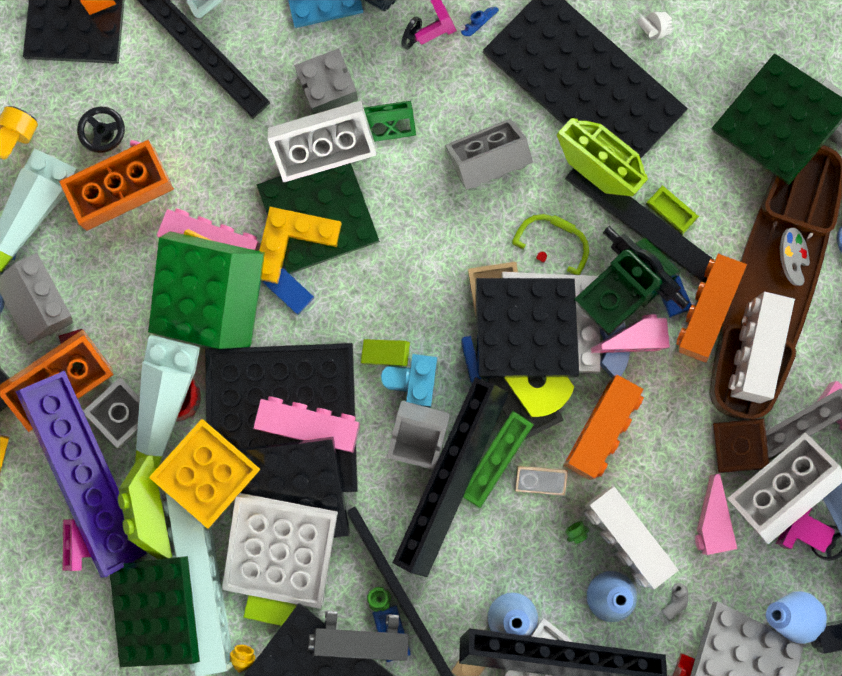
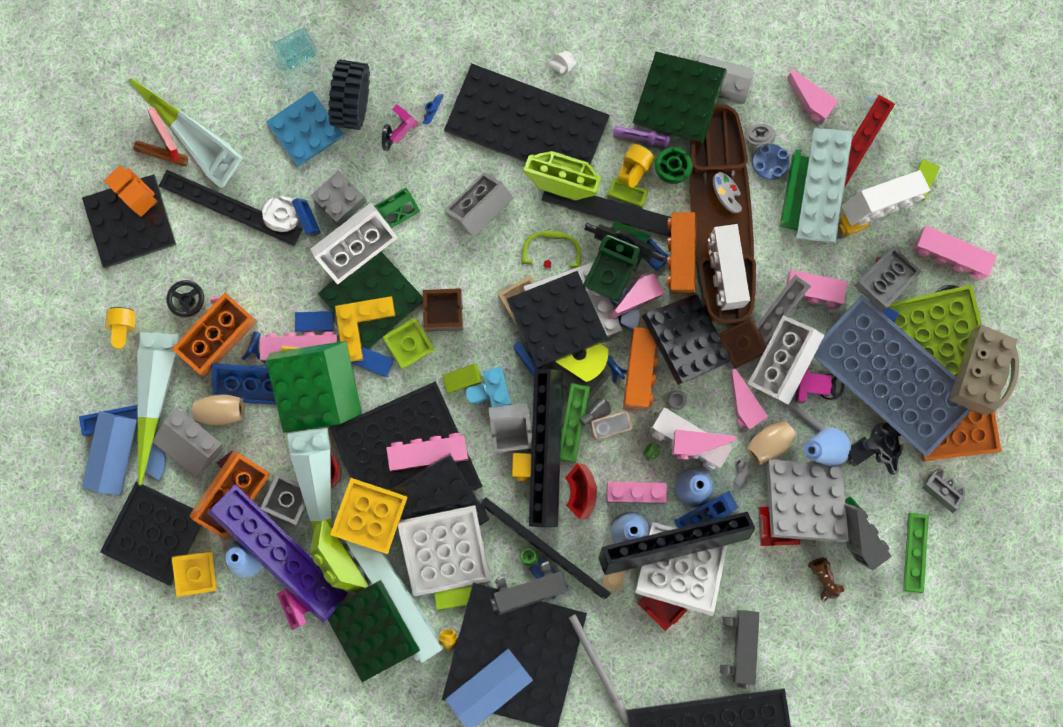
camera: 25 degrees left, 0 degrees up
(34, 464) = (240, 561): none -> light blue cone
(85, 275) = (218, 410): none -> tan piece
(123, 255) = (243, 381): none -> blue slope
(157, 215) = (253, 346): none -> blue bar
(239, 215) = (314, 321): none -> blue tile
(252, 75) = (280, 214): none -> white tile
(279, 89) = (306, 217): none -> blue tile
(339, 285) = (409, 343): none -> lime plate
(396, 261) = (443, 310): none -> reddish brown piece
(413, 487) = (521, 467): none -> yellow brick
(474, 546) = (583, 491): none -> red brick
(533, 456) = (598, 410): none -> dark grey cone
(539, 575) = (636, 492): none -> bright pink brick
(573, 415) = (616, 370): none -> blue bar
(621, 634) = (709, 511): none -> blue slope
(632, 546) = (692, 443): none -> bright pink slope
(633, 482) = (677, 399): none -> light grey tile
(674, 413) = (686, 338): none -> black plate
(703, 176) = (639, 160): none -> yellow piece
(728, 581) = (771, 442): none -> tan piece
(729, 155) = (652, 141): none -> medium lavender pin
(741, 198) = (673, 165): none -> green cone
(781, 566) = (804, 416): none -> light grey bar

